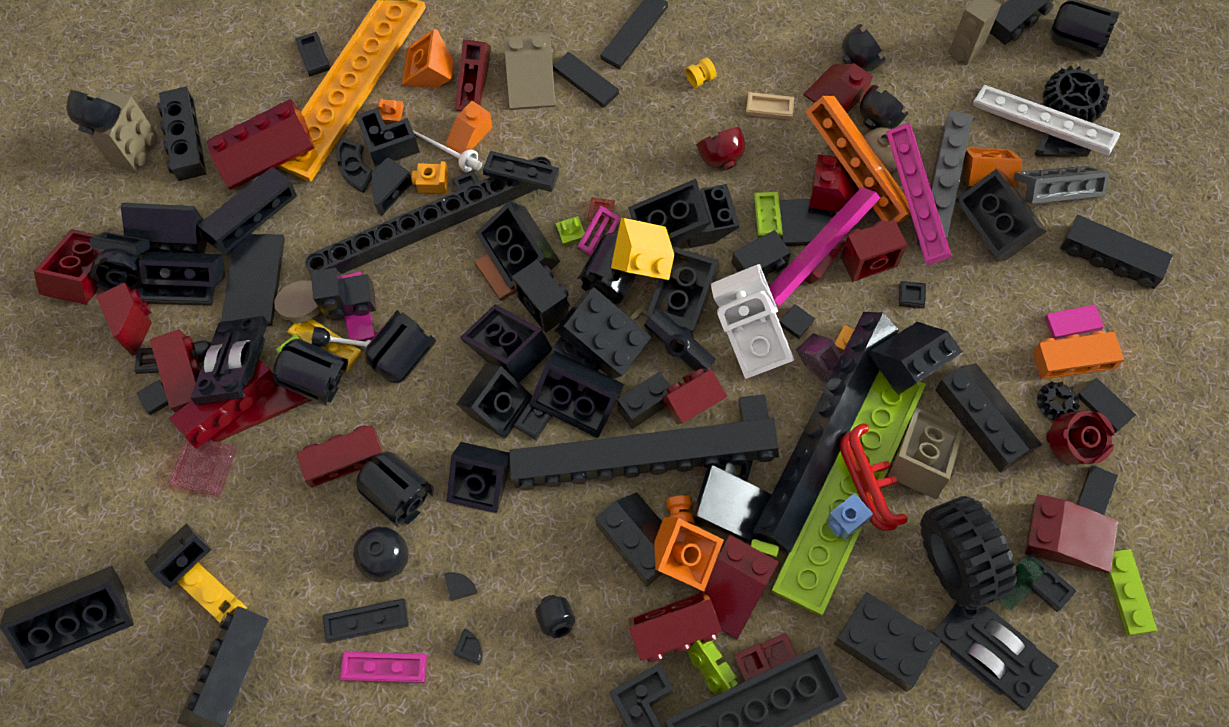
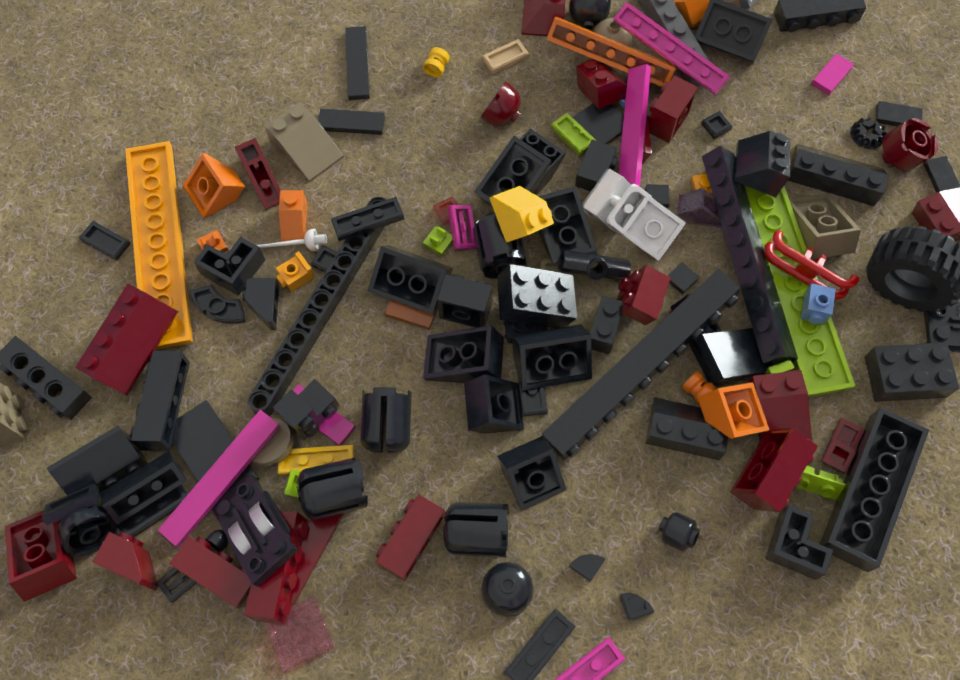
camera: 40 degrees left, 0 degrees up
(153, 397) = (207, 610): black tile -> none
(240, 302) = (218, 478): none -> dark pink tile
(322, 338) = (315, 456): black hinge -> none
(1077, 355) = (856, 93): orange brick -> none

